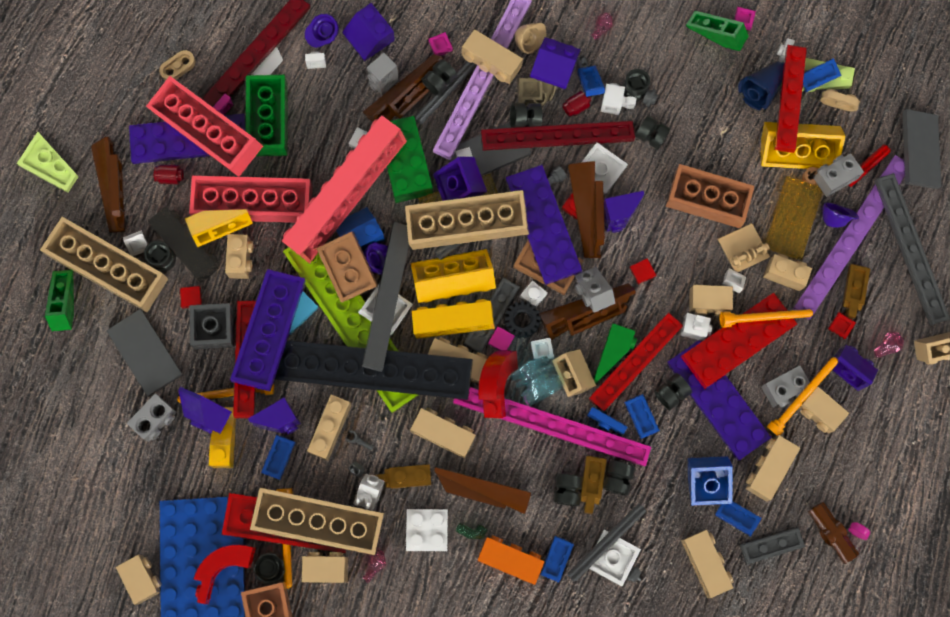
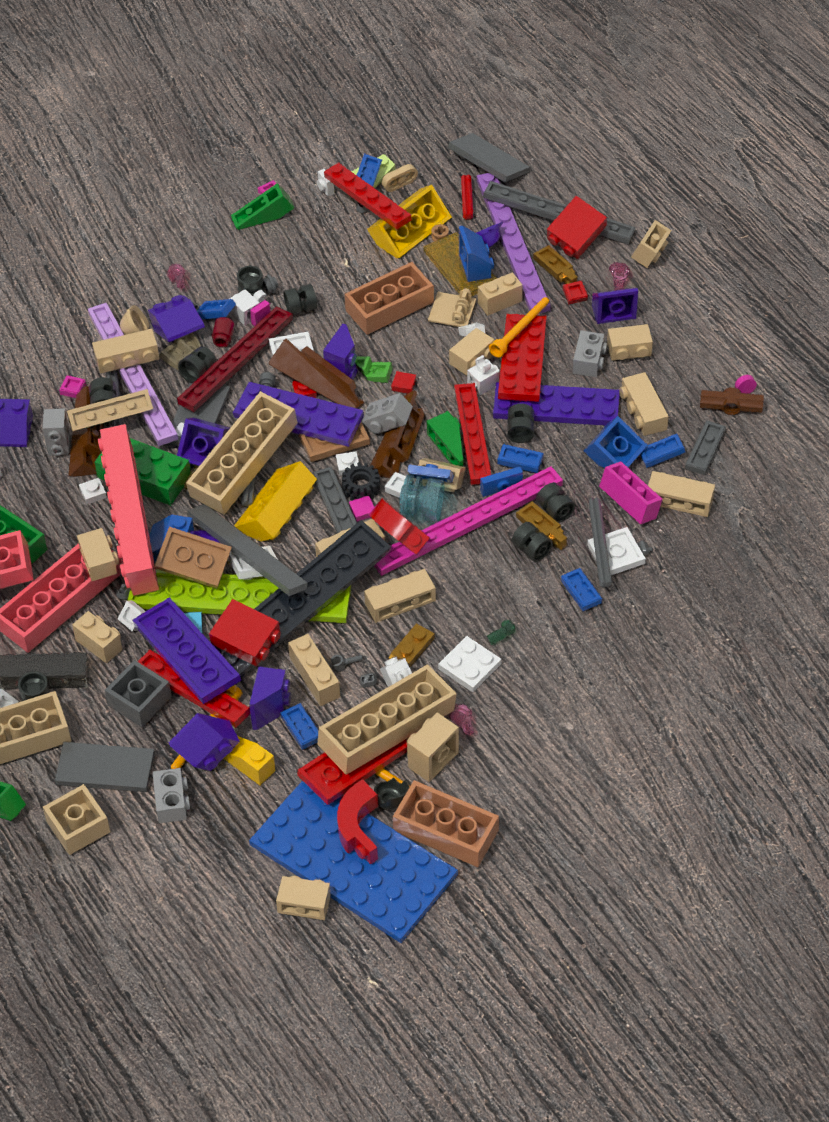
camera: 45 degrees left, 25 degrees down
(81, 374) = (76, 819): none -> tan brick
(190, 296) = (92, 699): red tile -> none
(211, 225) = (55, 623): yellow slope -> none
(276, 262) = (129, 612): none -> white plate
(288, 203) = (97, 554): none -> tan brick
(311, 360) = (245, 633): none -> red brick
(427, 95) = (109, 410): none -> tan plate
(453, 319) = (312, 523): yellow brick -> none
(483, 490) = (475, 598): reddish brown wedge -> none
(511, 560) = (552, 619): orange brick -> none
(559, 371) = (431, 471): none -> plate
(616, 114) = (259, 312): none -> dark pink tile
(636, 241) = (374, 370): none -> bright green slope
(673, 528) = (630, 492): none -> dark pink brick
(762, 86) = (338, 212): dark blue cone -> none
(779, 424) = (614, 379): light orange piece -> none
(804, 226) = (474, 255): none -> blue slope
(838, 175) = (456, 211): light grey brick -> none
(903, 277) = (576, 227): none -> red brick

